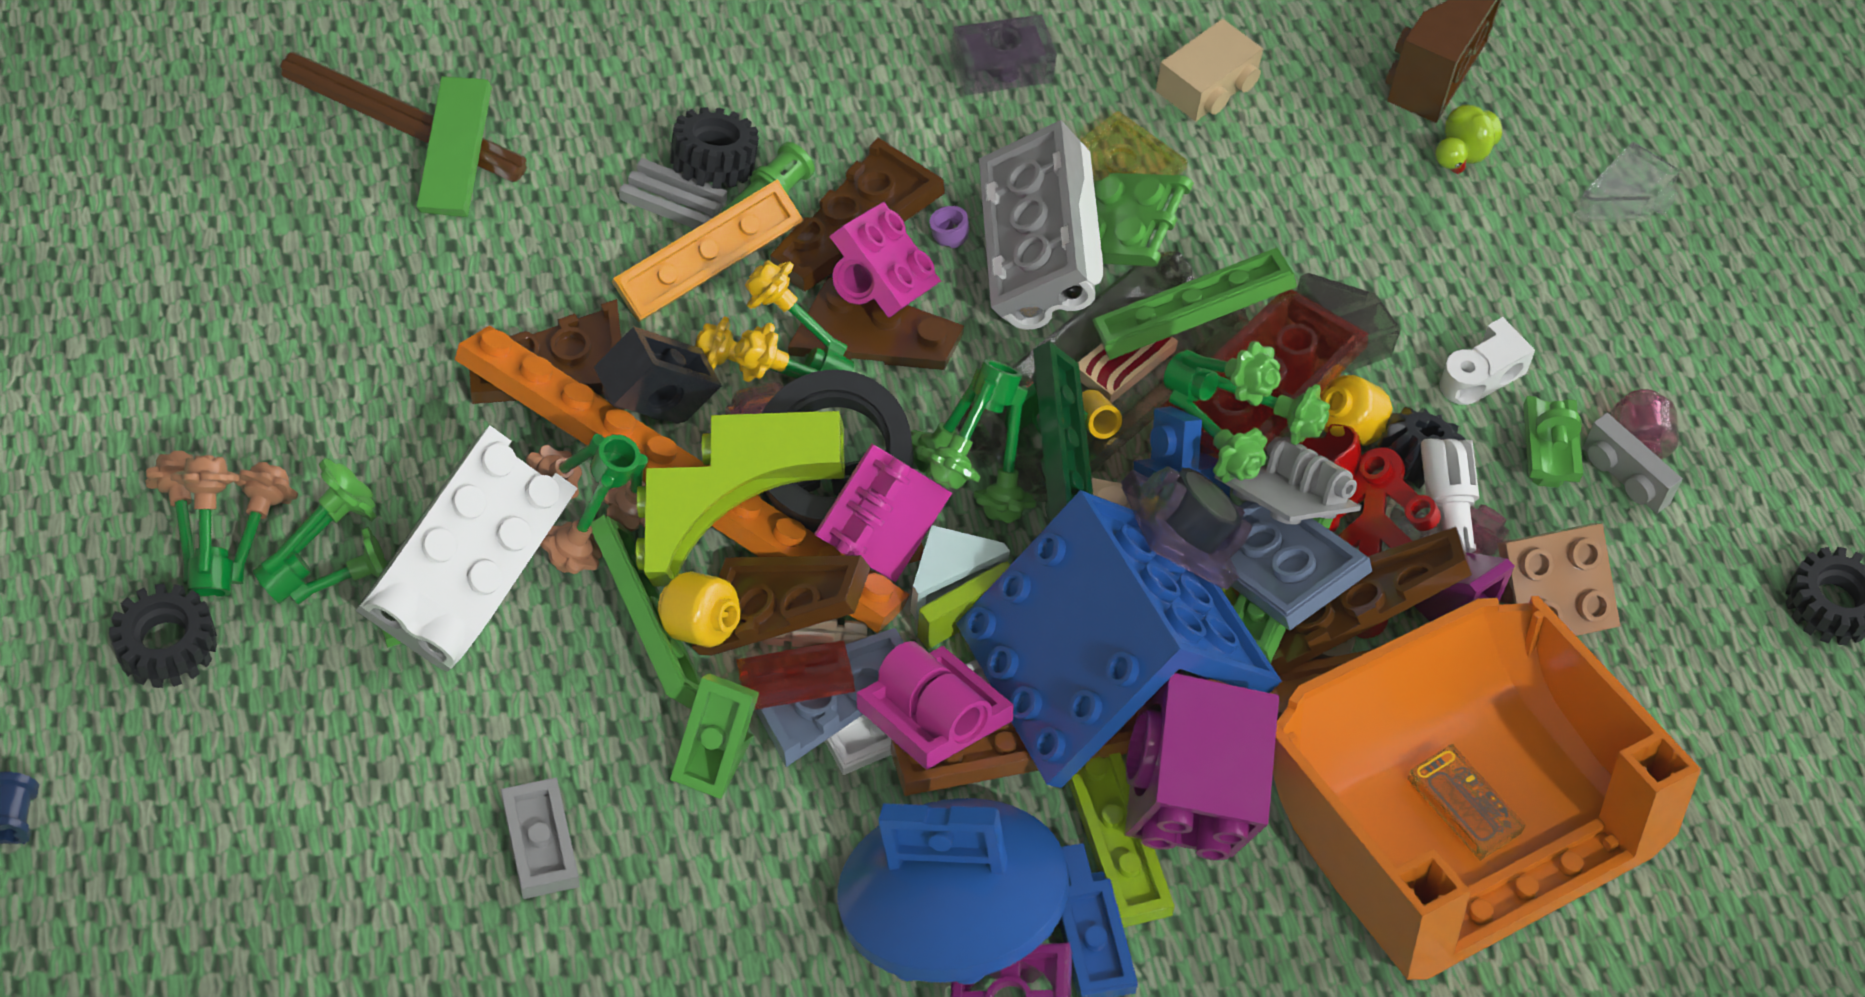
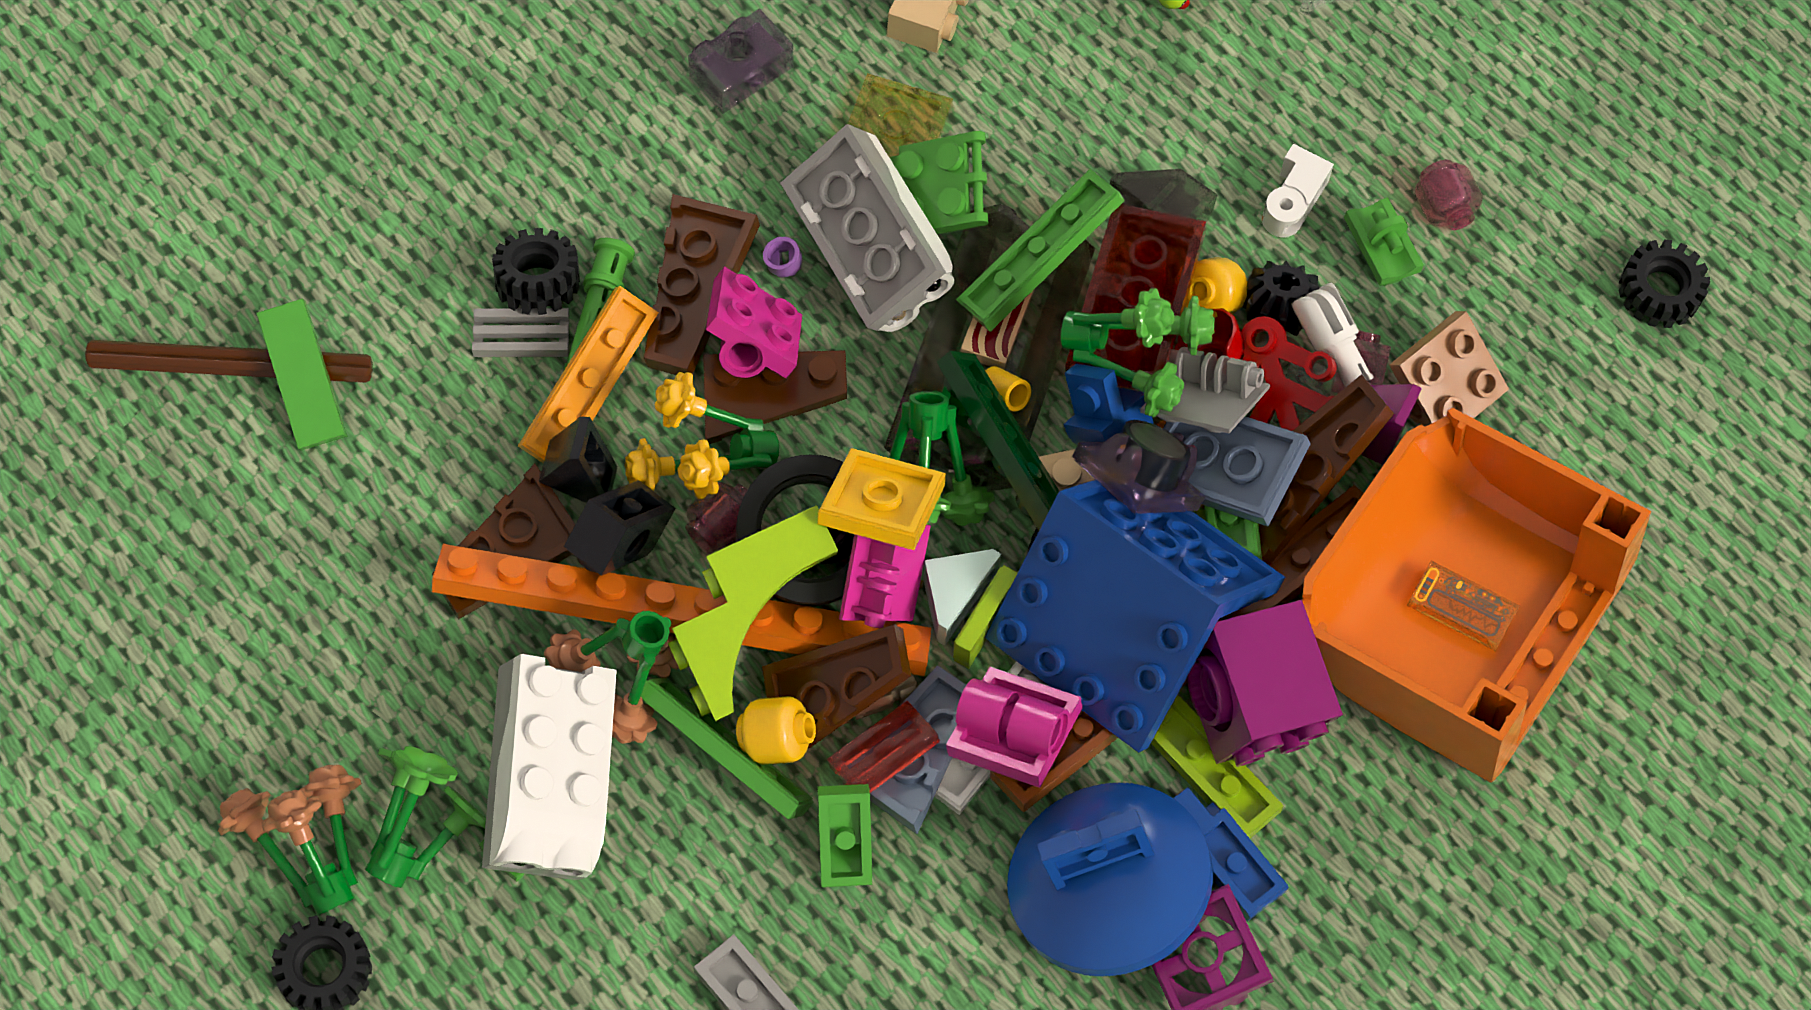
camera: 25 degrees left, 10 degrees up
(659, 307) = (579, 462): none -> black slope
(906, 432) = (881, 499): none -> yellow plate
(1632, 463) = (1467, 240): light grey plate -> none

